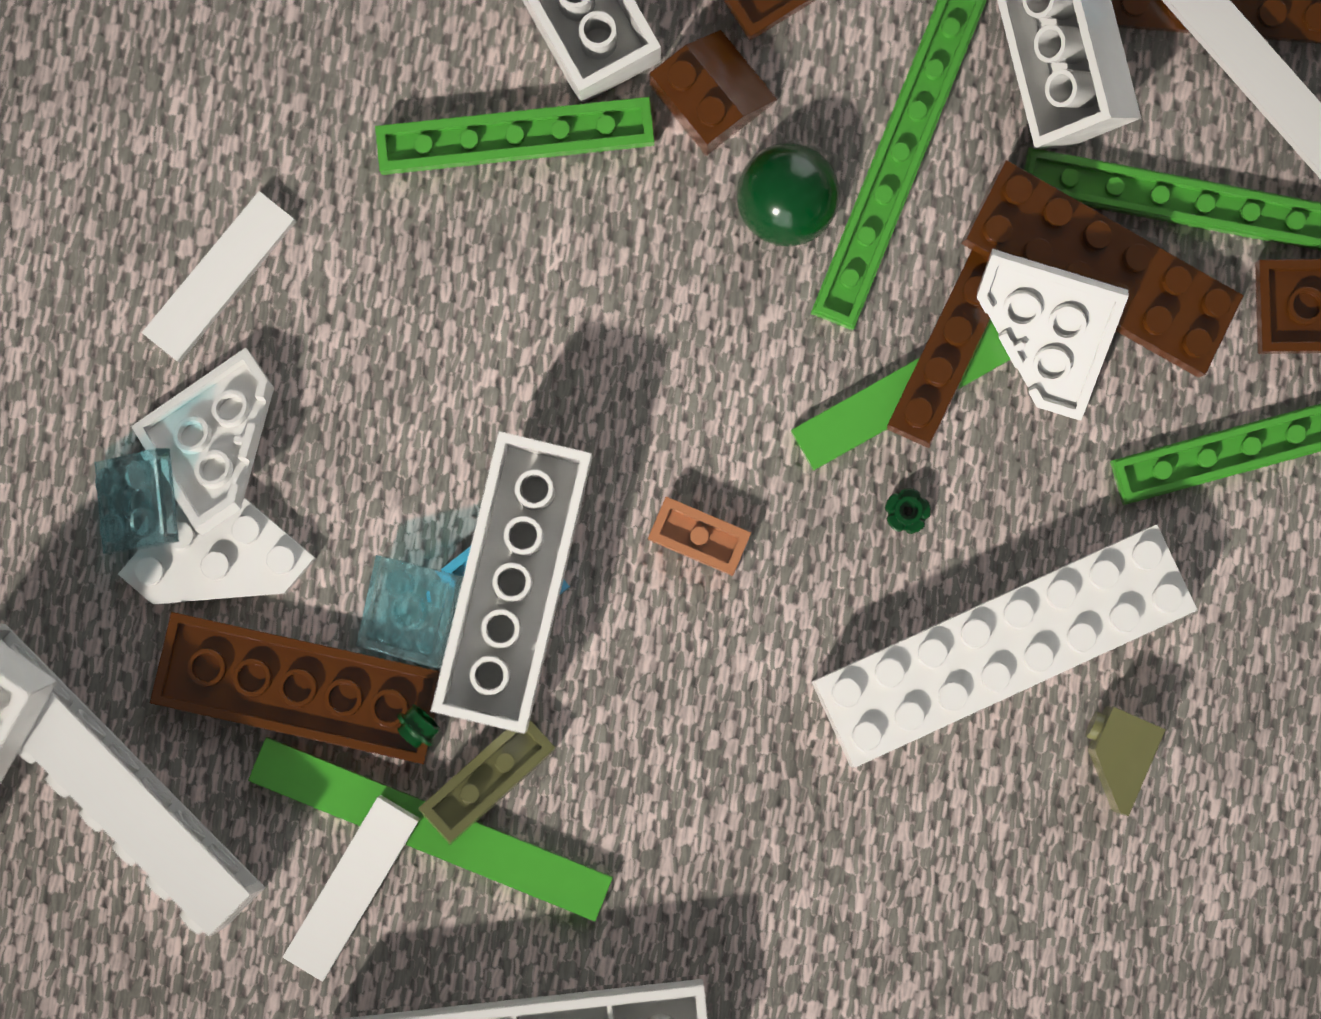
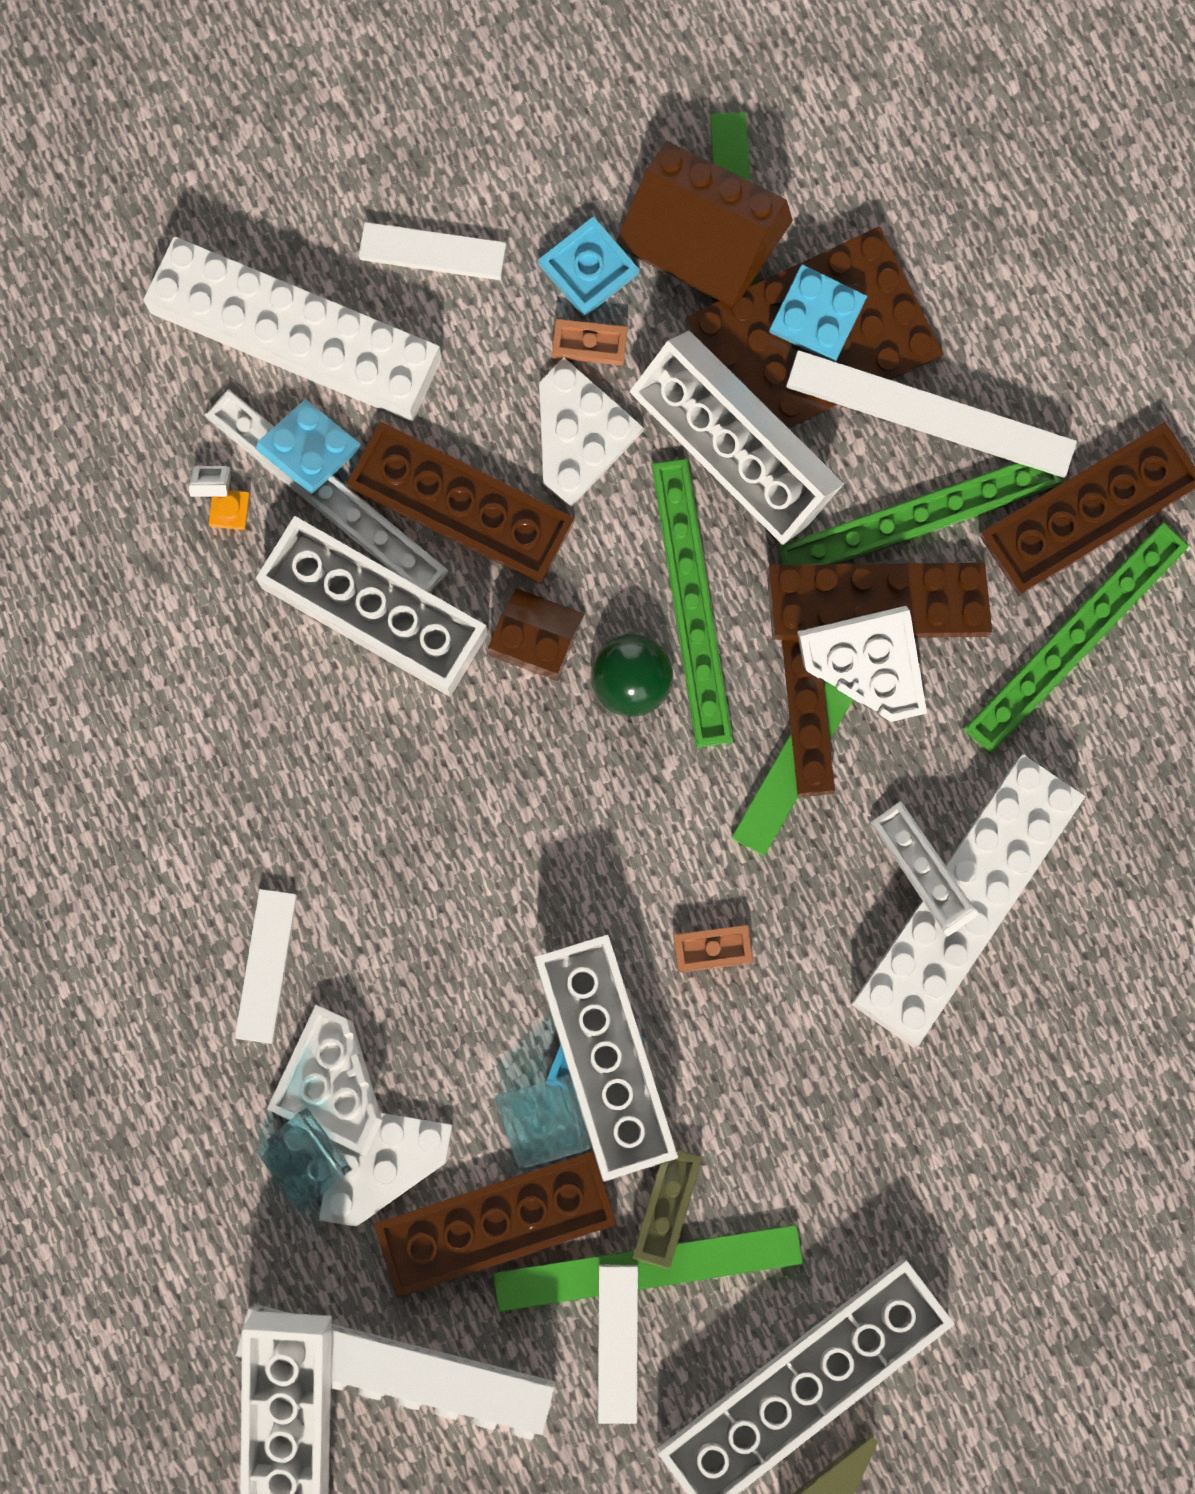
camera: 30 degrees left, 5 degrees down
(417, 727) = (598, 1200): dark green plate -> none
(514, 135) = (417, 745): bright green plate -> none
(907, 498) = (842, 855): dark green plate -> none
(975, 585) = (924, 868): none -> white tile
(1122, 754) = (1094, 926): olive slope -> none

